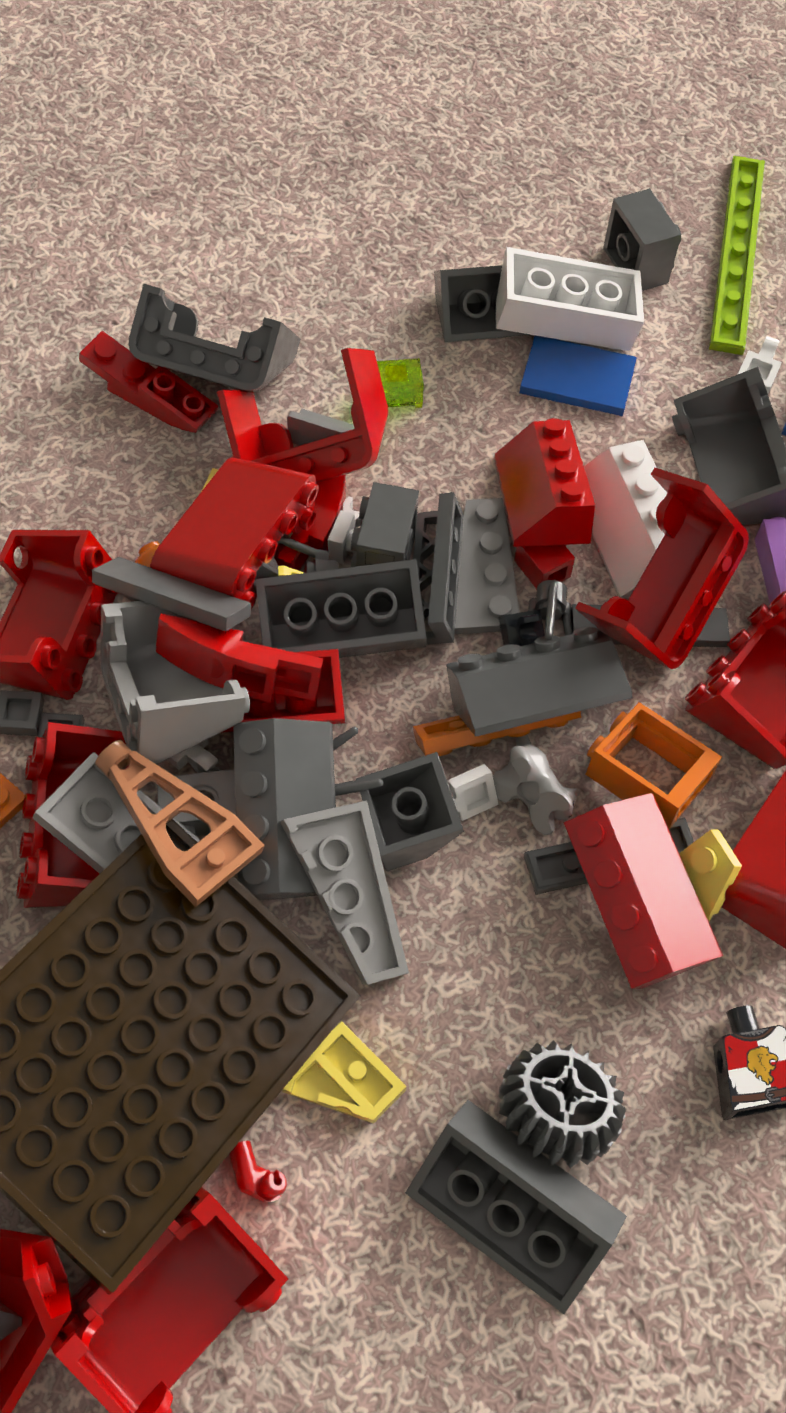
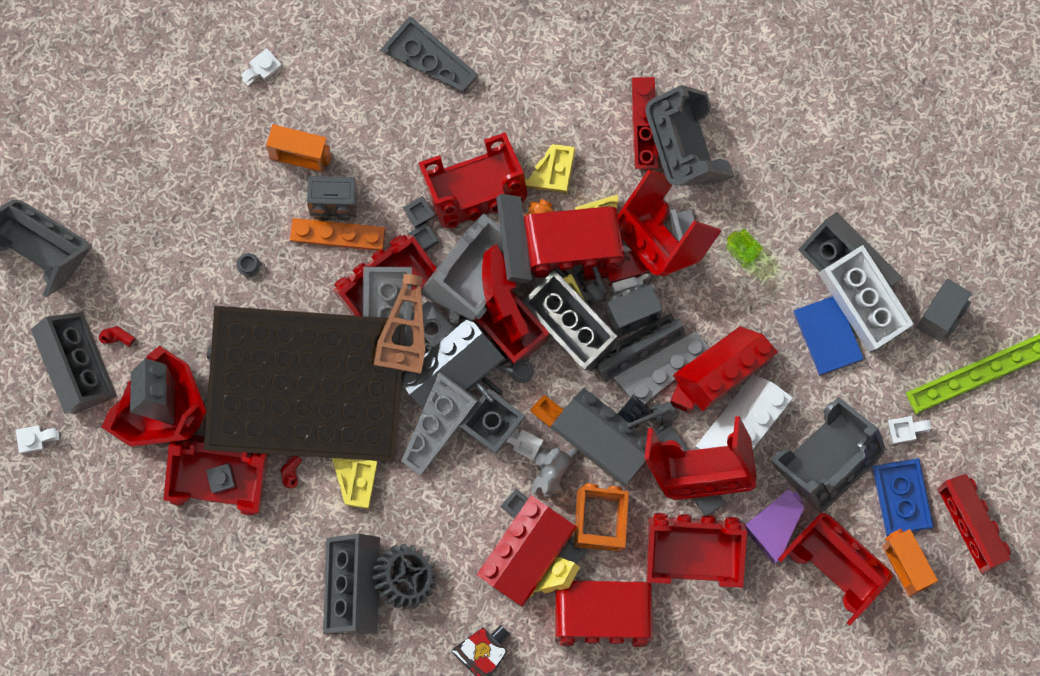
camera: 55 degrees right, 15 degrees up
(115, 516) = (554, 170): none -> light yellow wing
(179, 1304) = (221, 478): none -> dark grey plate
(366, 733) = (522, 371): none -> dark grey plate

